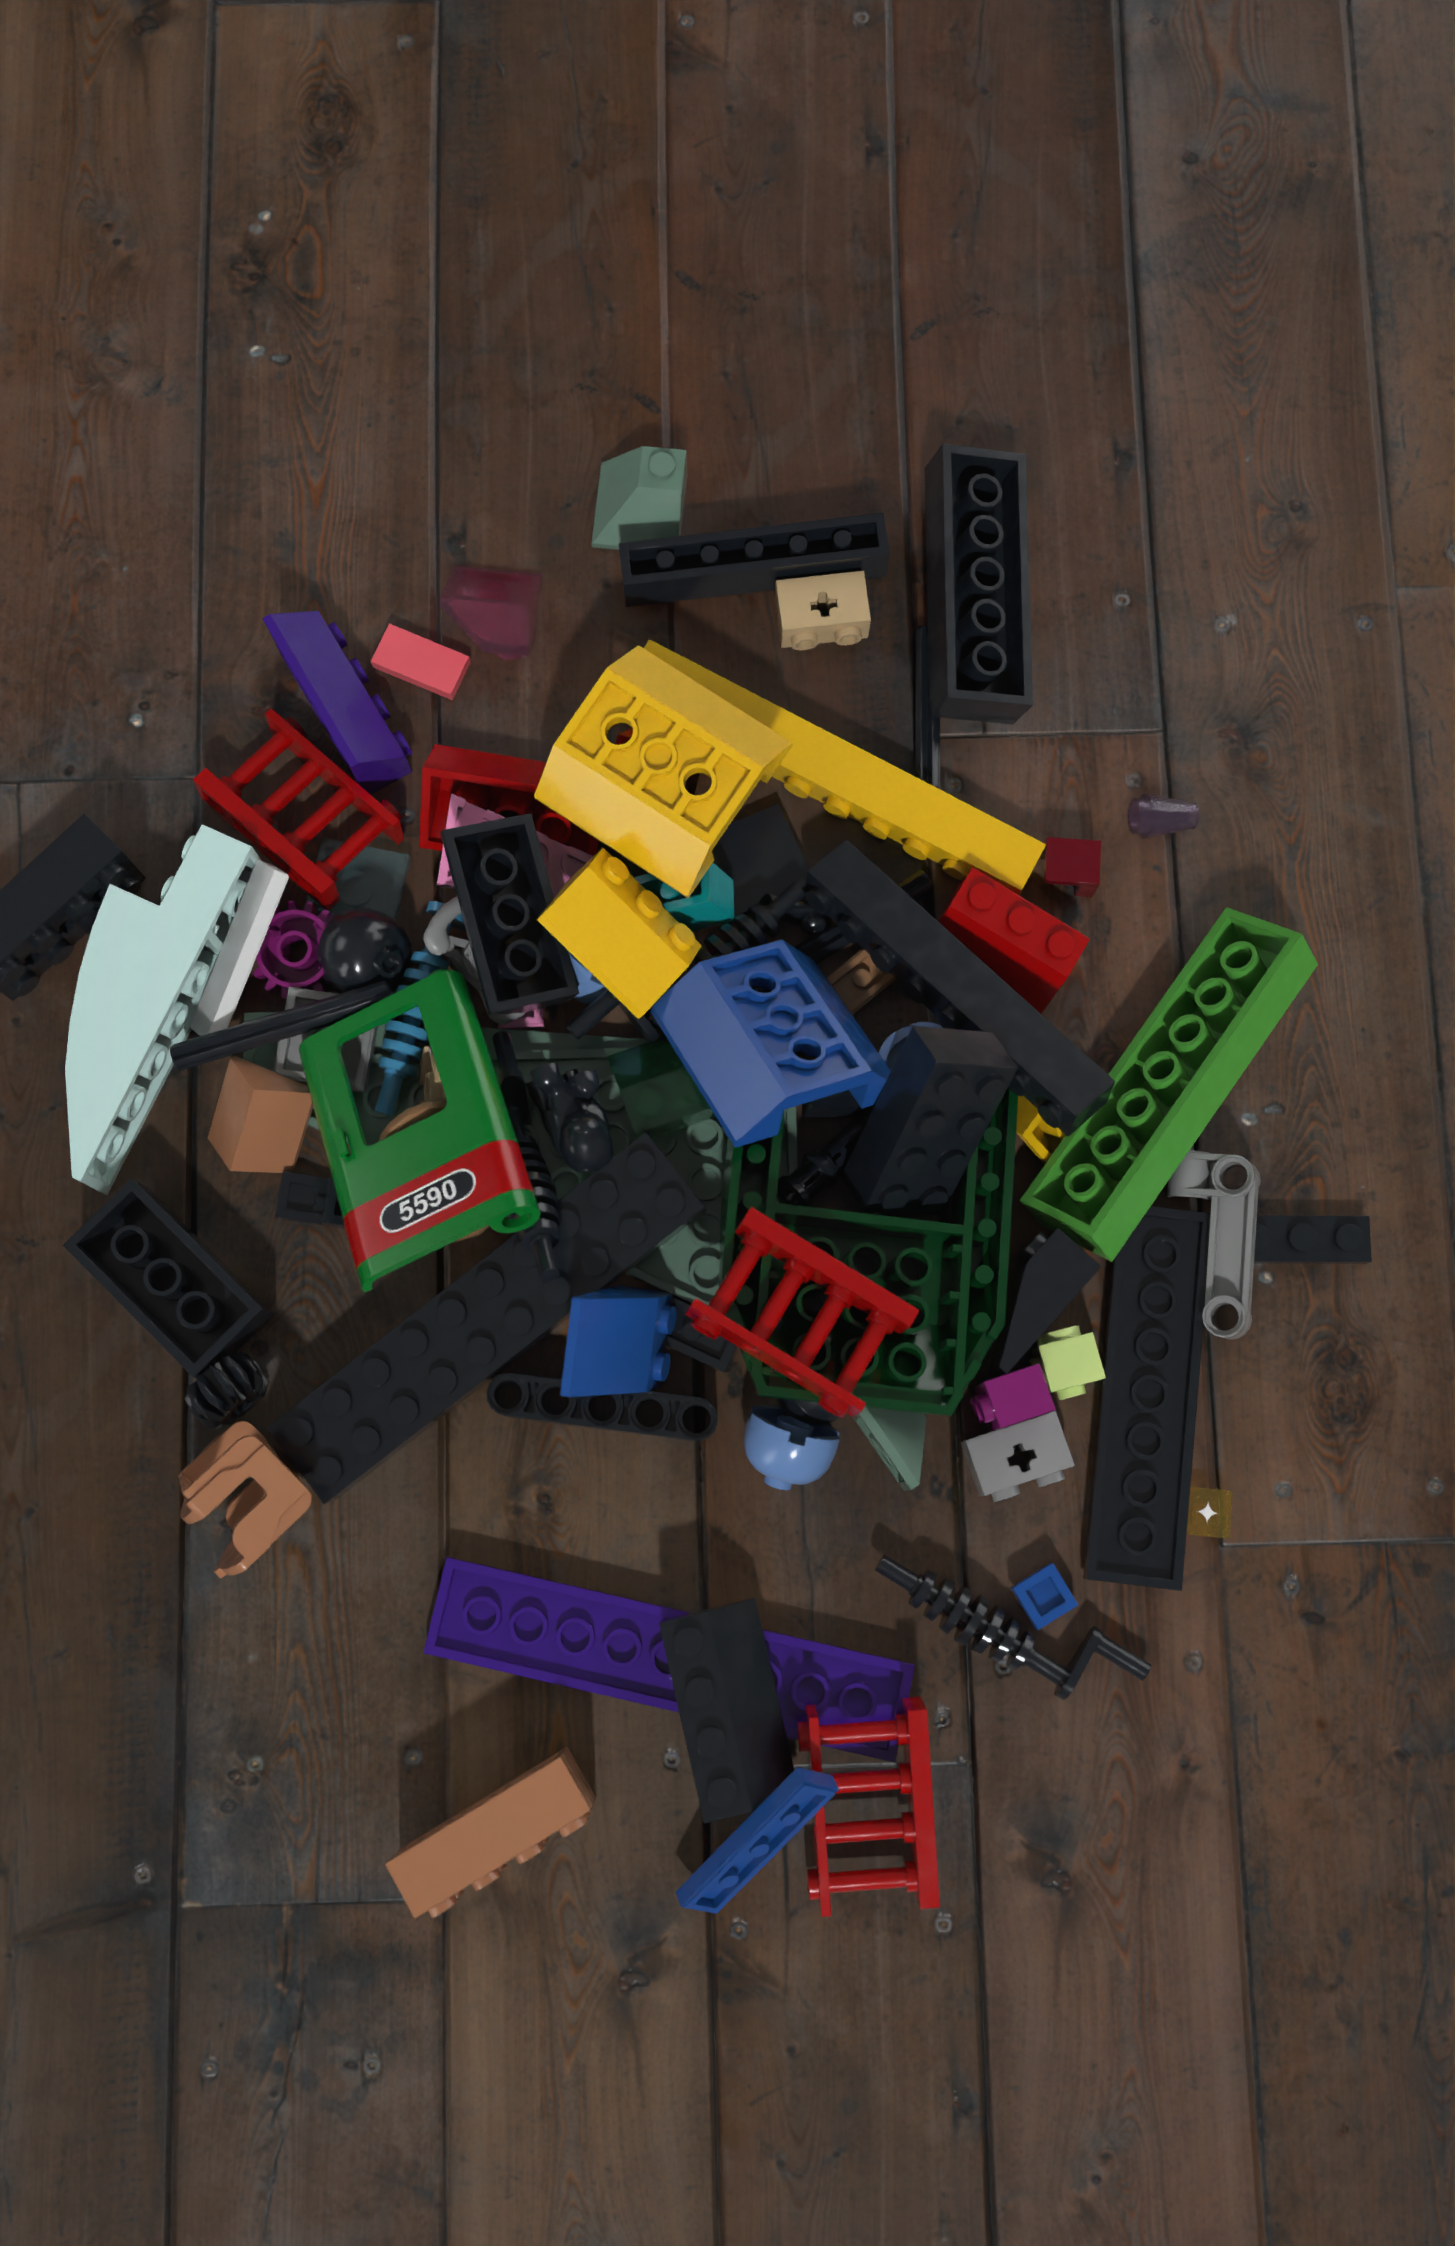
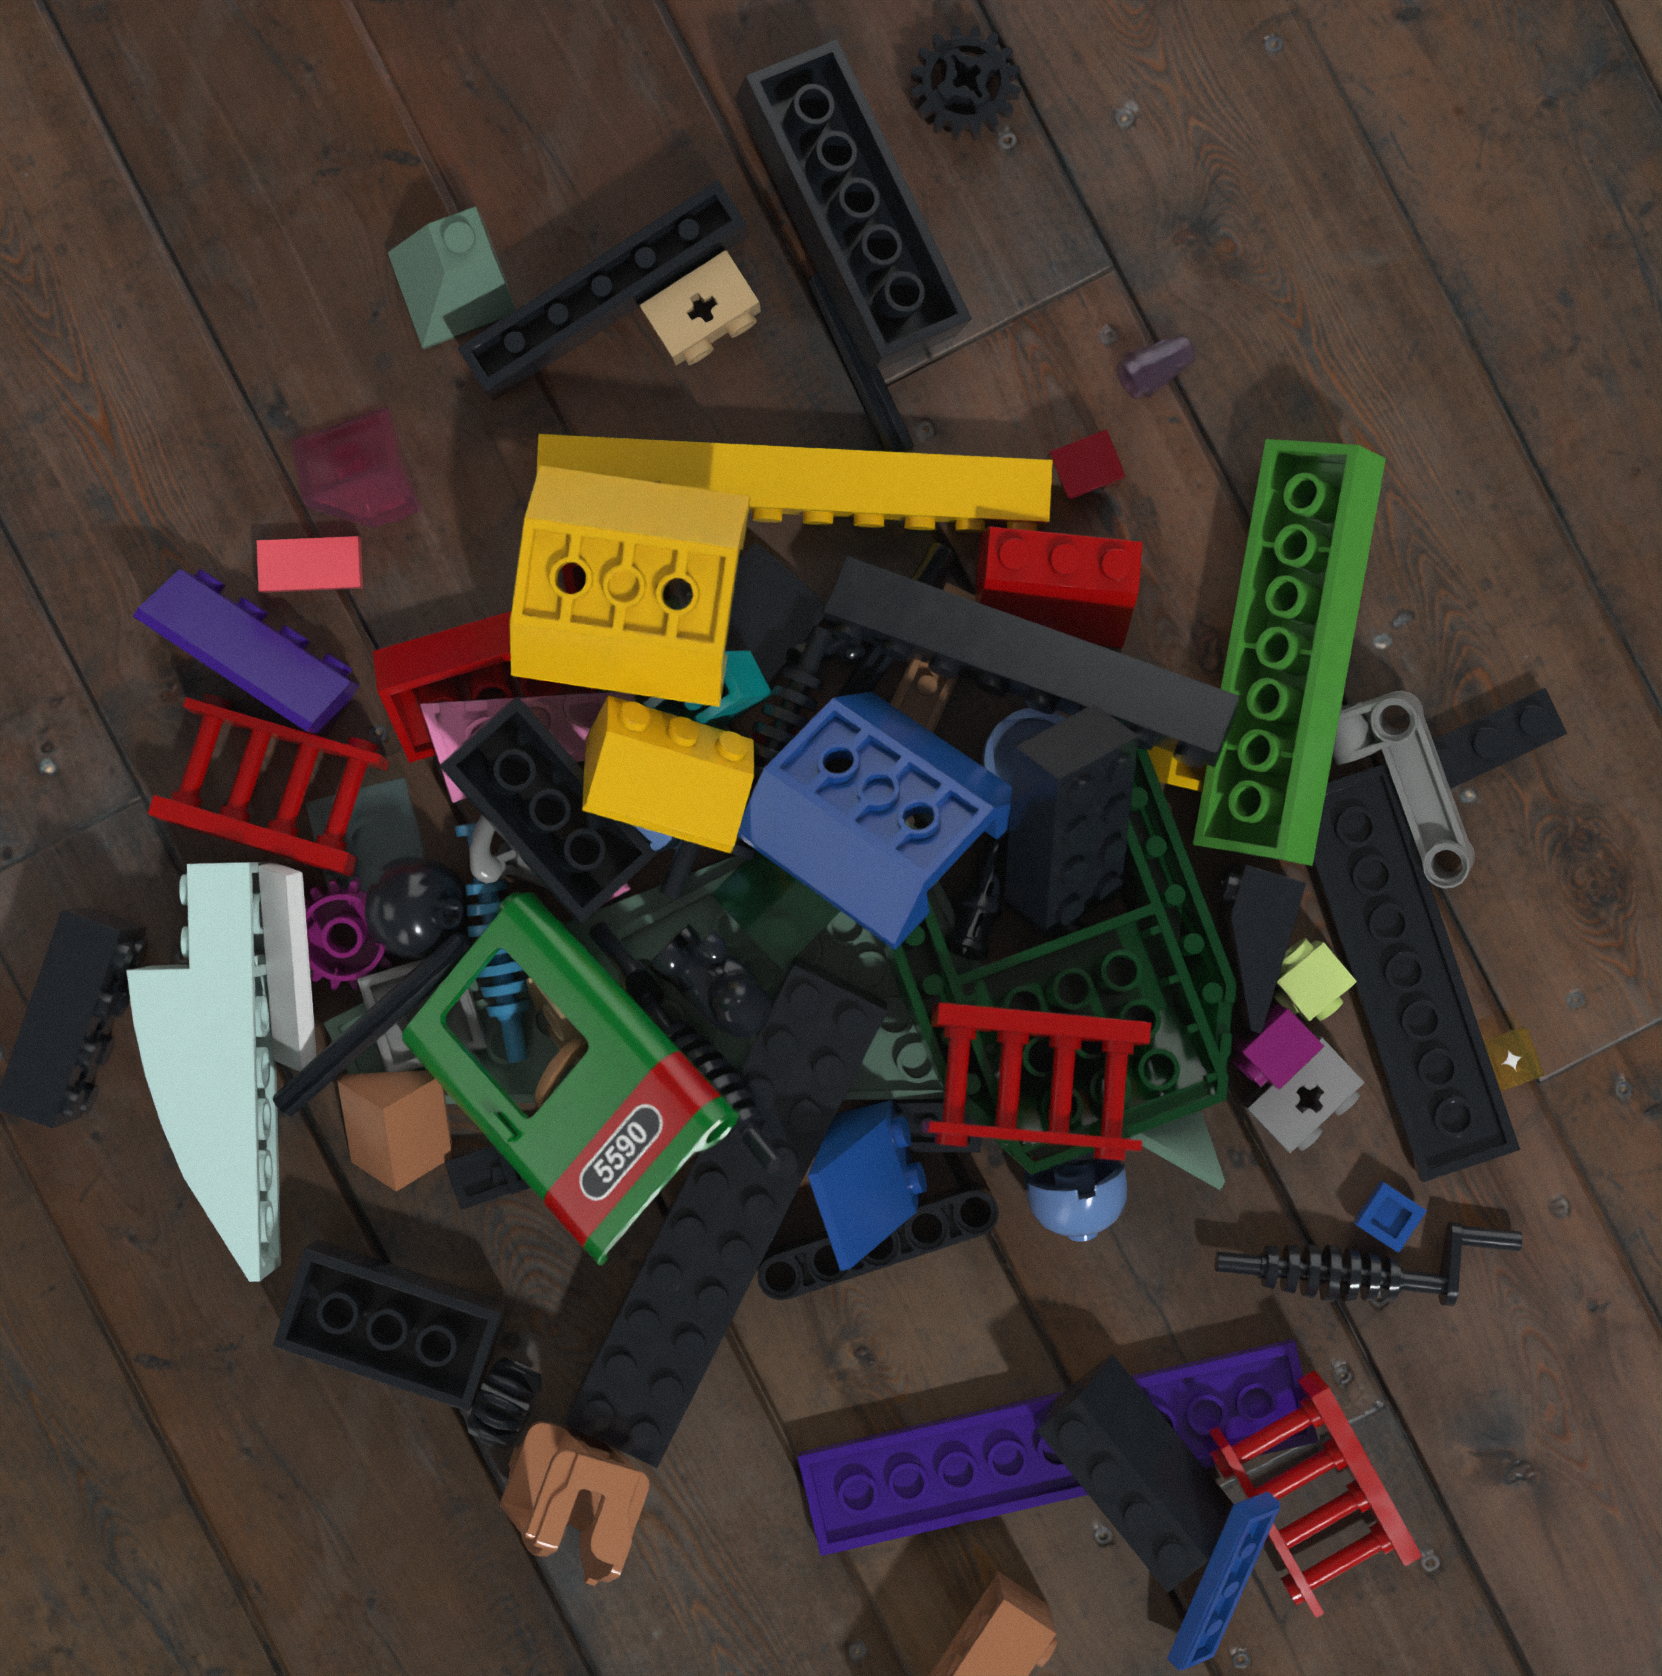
camera: 25 degrees left, 10 degrees up
(1122, 526) = (956, 64): none -> black gear

